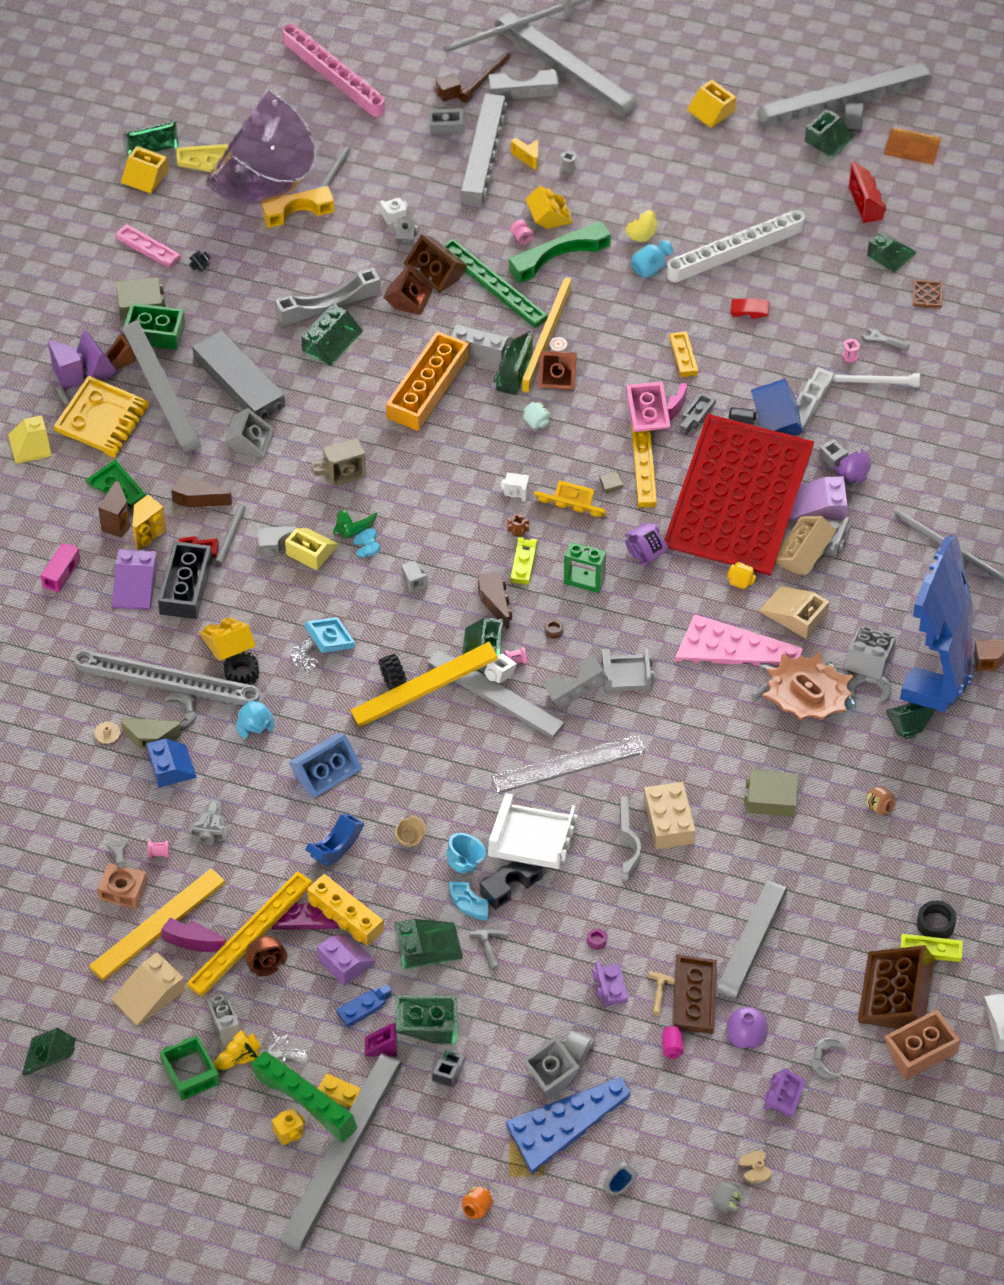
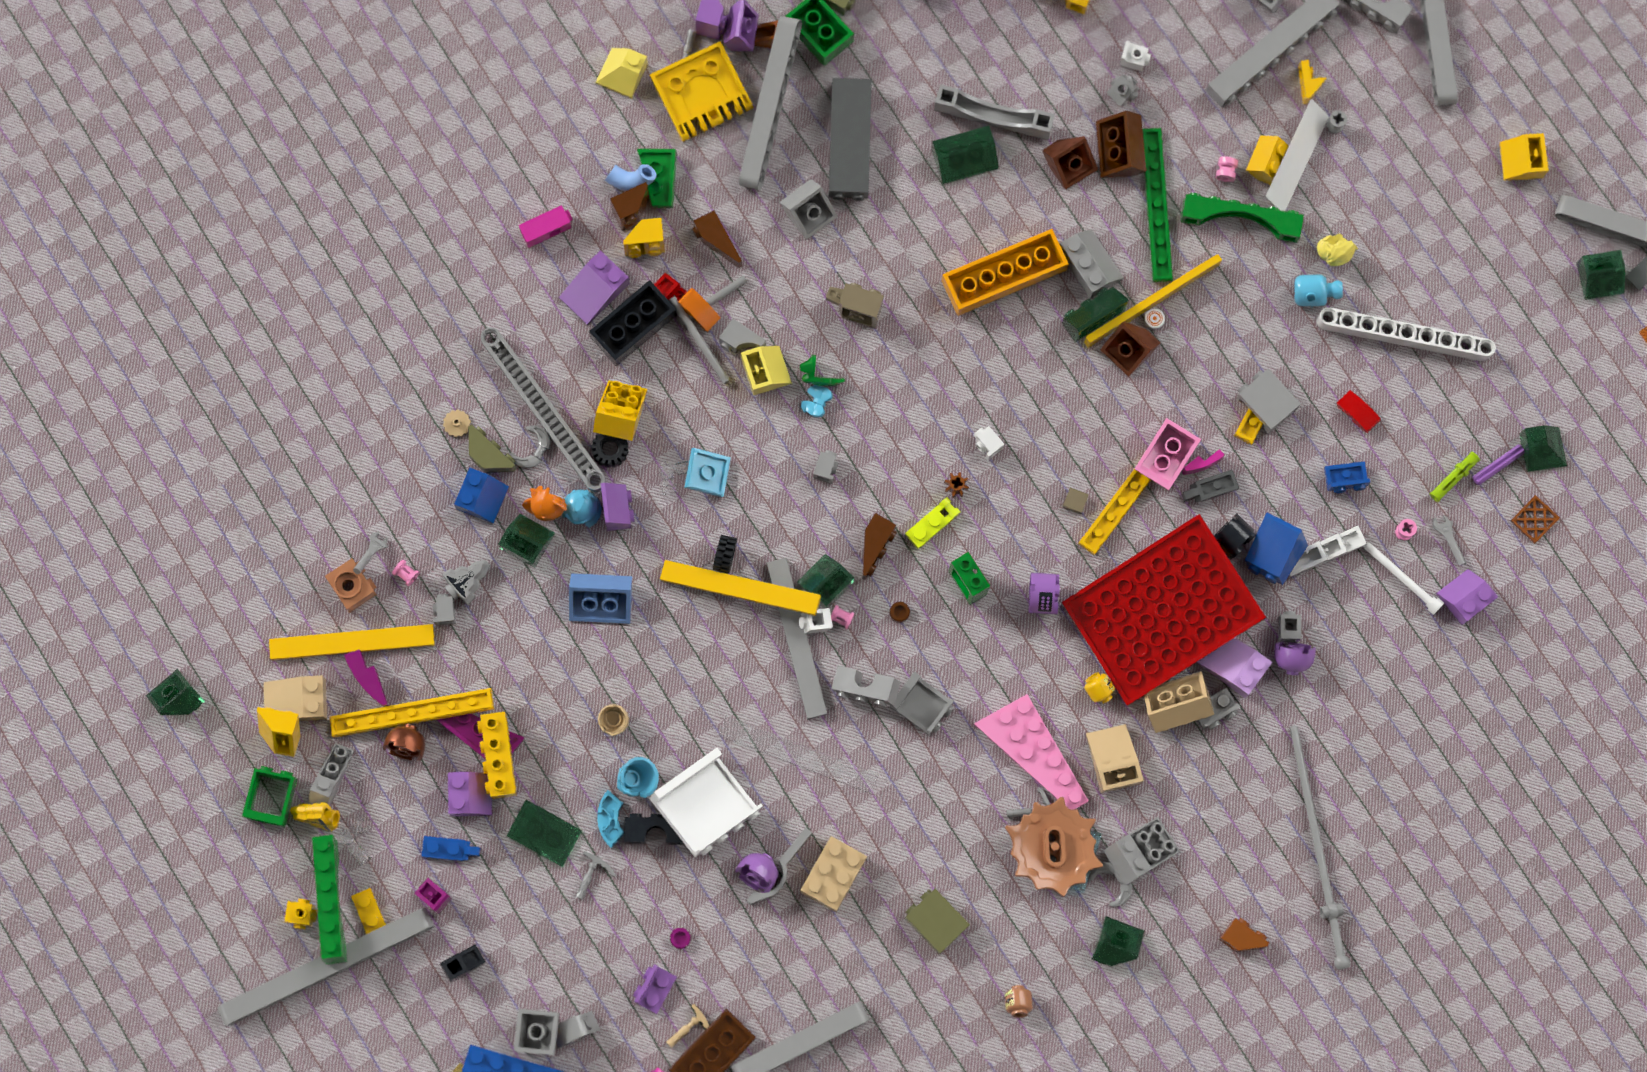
camera: 35 degrees right, 25 degrees up
(90, 503) = (627, 180): none -> light blue cylinder
(155, 1012) = (279, 730): none -> yellow slope
(212, 852) = (444, 610): none -> light grey brick
(224, 539) = (699, 309): none -> orange slope
(226, 729) = (544, 505): none -> orange hair
(234, 768) = (526, 540): none -> clear green slope
(251, 563) = (699, 340): none -> light grey piece
(281, 699) = (616, 506): none -> medium lavender slope
(338, 841) = (545, 682): blue arch -> none
(427, 1017) = (479, 906): clear green slope -> none
(536, 415) = (1069, 382): light aqua head -> none
(561, 194) = (1297, 156): none -> white sticker
(572, 496) = (1027, 494): yellow bracket -> none
(612, 851) = (758, 871): none -> medium lavender cylinder
(683, 337) = (1268, 399): none -> light grey panel
(781, 347) = (1346, 477): none -> blue bracket
(851, 297) = (1461, 470): none -> lime pin
(865, 194) = (1575, 370): red slope -> none
(872, 278) = (1498, 464): none -> medium lavender axle
(931, 360) = (1466, 596): none -> medium lavender slope
(946, 619) = (1190, 917): blue panel -> none

